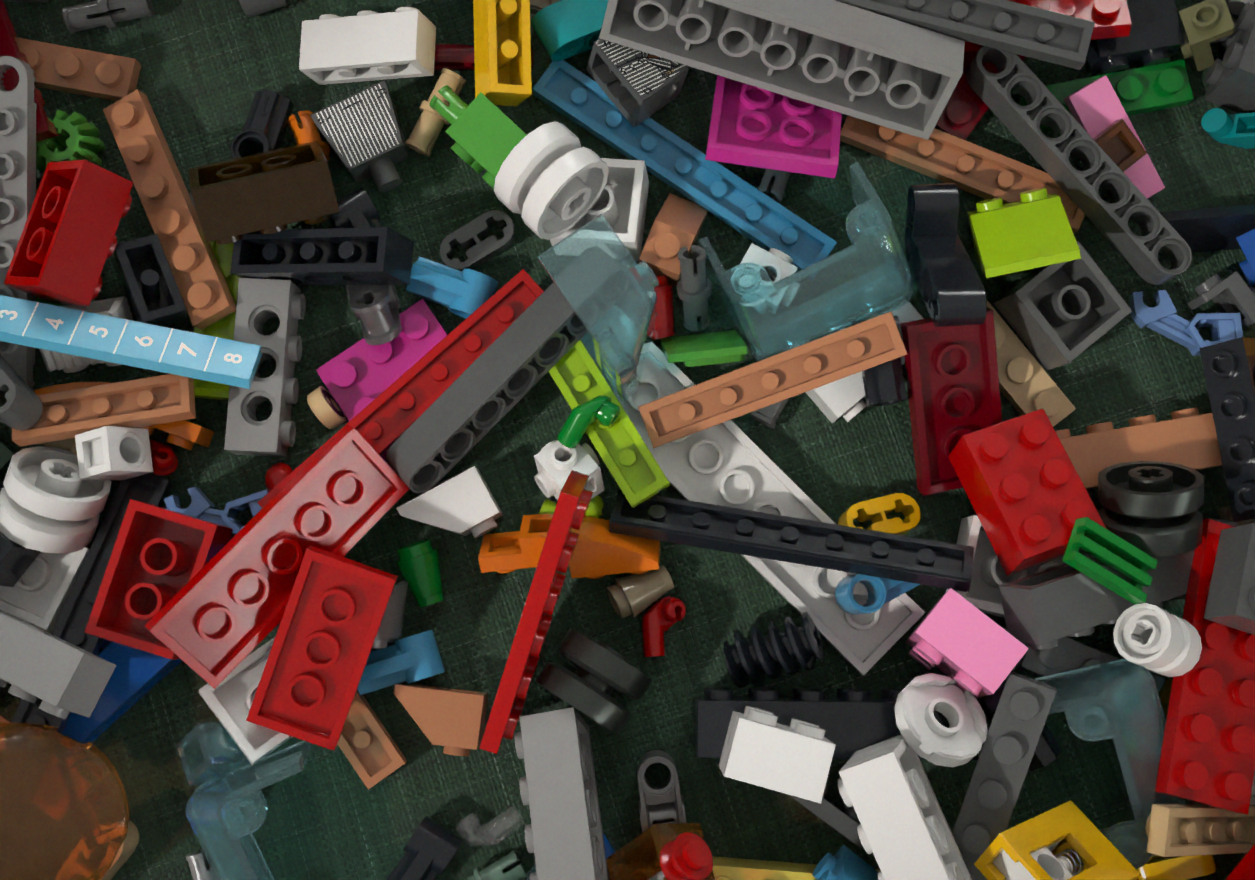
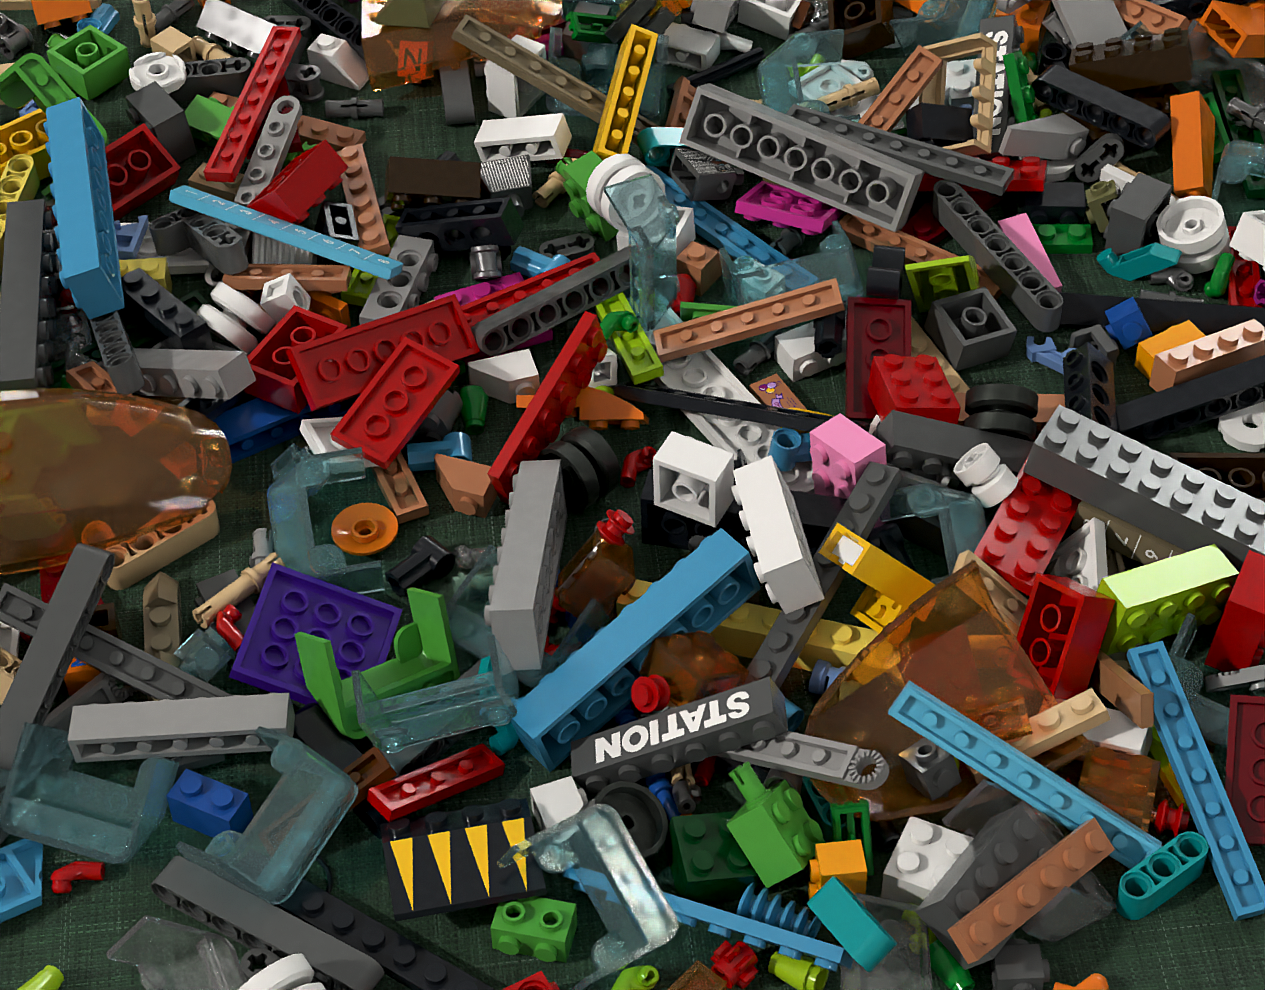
camera: 10 degrees right, 35 degrees down
(309, 822) = (364, 529): none -> orange dish
(637, 591) = (626, 440): dark tan cone -> none
(694, 287) = (710, 277): dark grey pin -> none
(824, 472) = (775, 393): none -> nougat tile
(926, 735) = (816, 485): white tile -> none
(1120, 144) = (1032, 250): reddish brown tile -> none
(1123, 550) = (956, 417): green tile -> none

